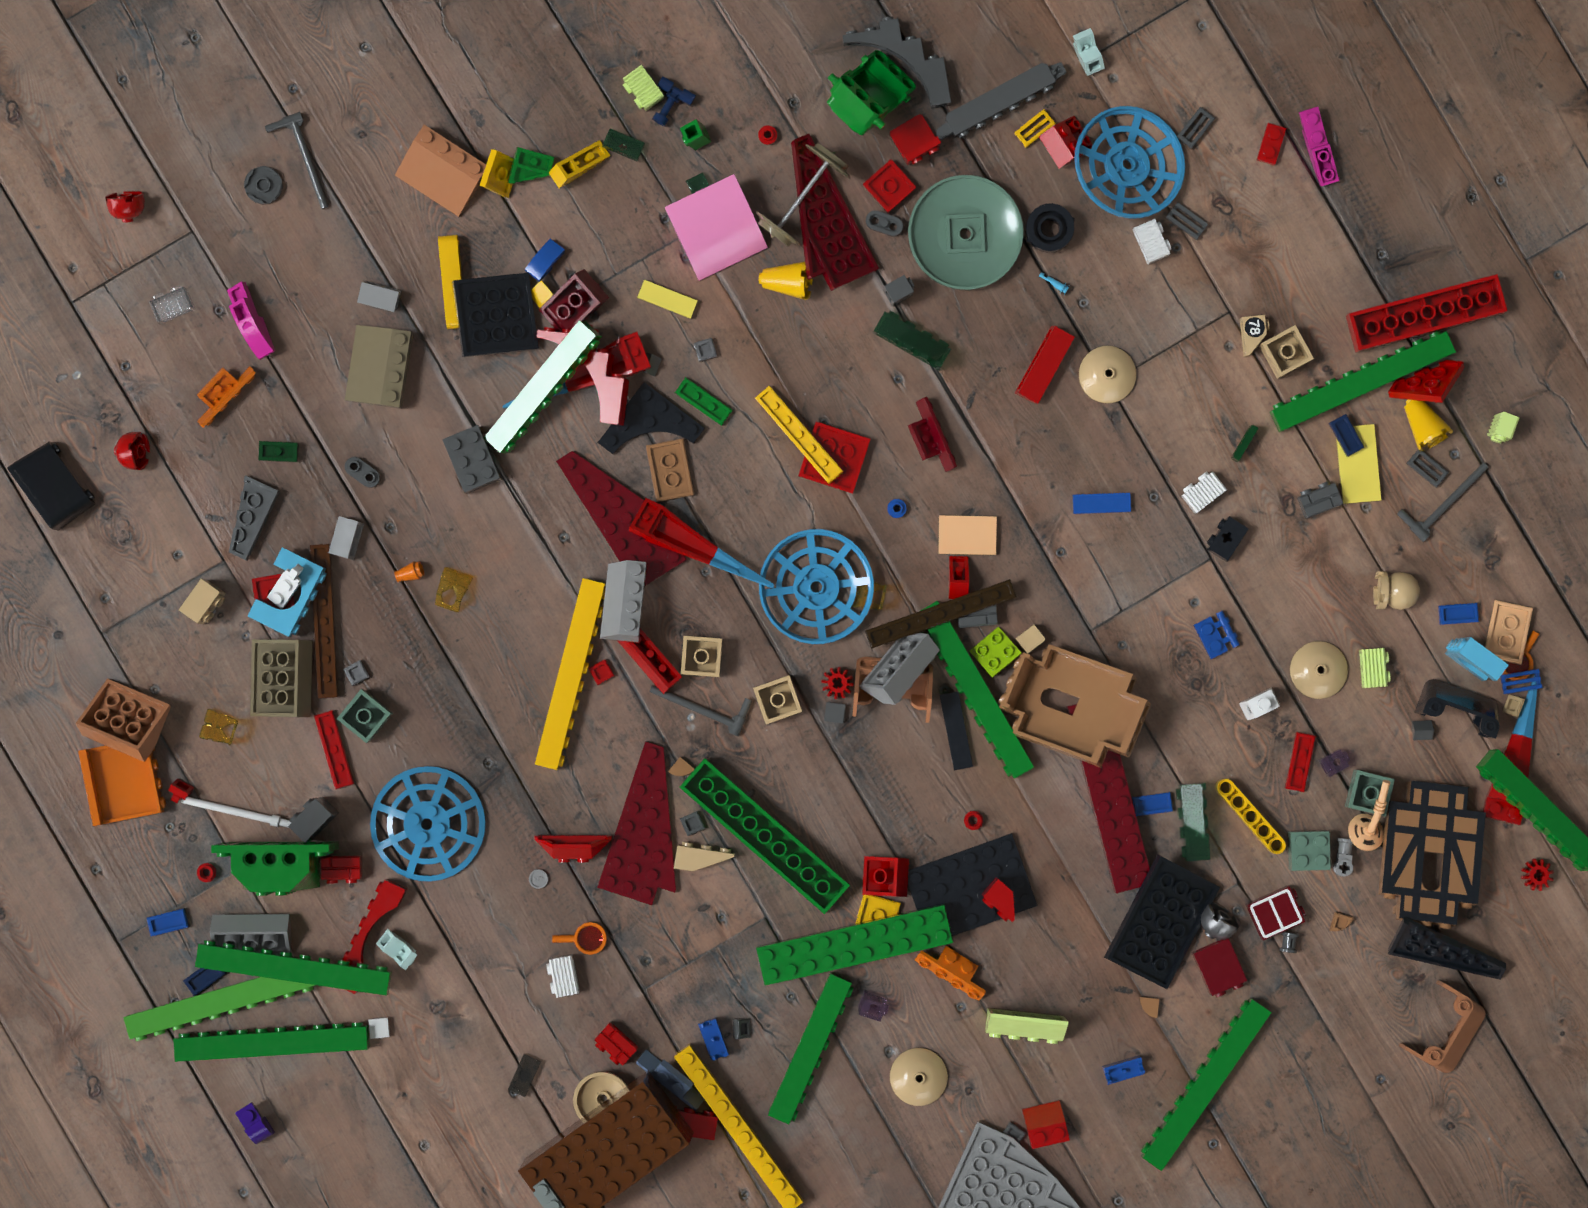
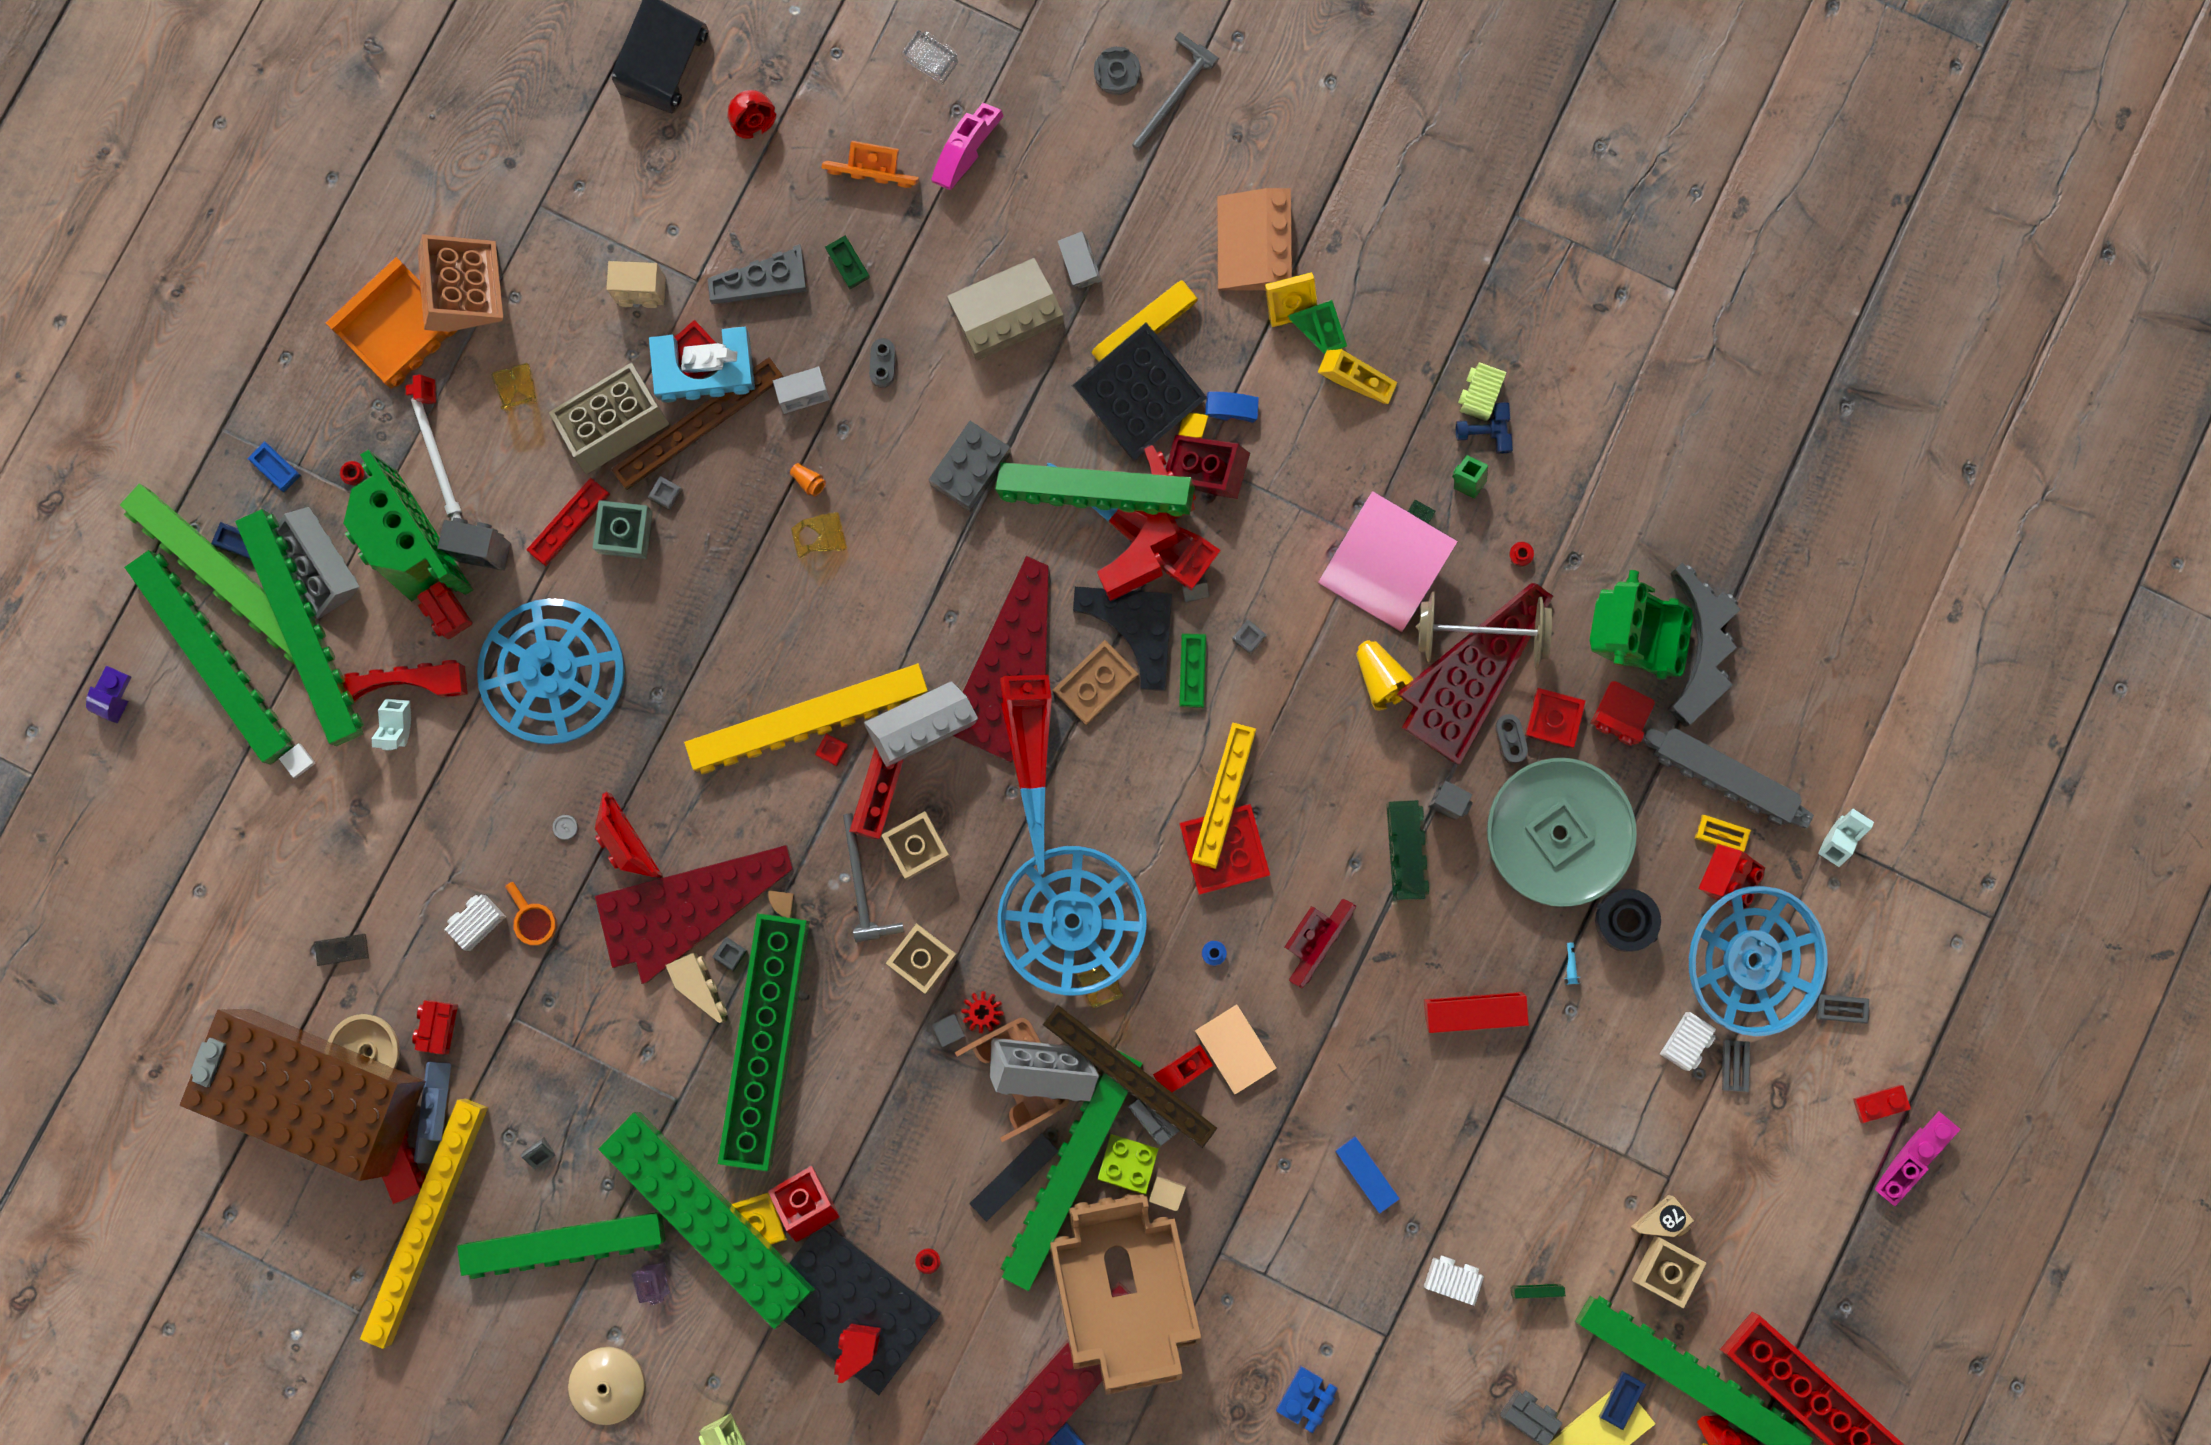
camera: 60 degrees right, 5 degrees down
(623, 145) = (1408, 410): clear green tile -> none
(667, 299) = (1276, 561): light yellow tile -> none
(713, 1039) = (507, 1131): blue hinge -> none
(953, 969) = (750, 1348): orange bracket -> none
(1097, 384) = (1493, 1088): tan dish -> none
(1236, 533) = (1432, 1348): black brick -> none

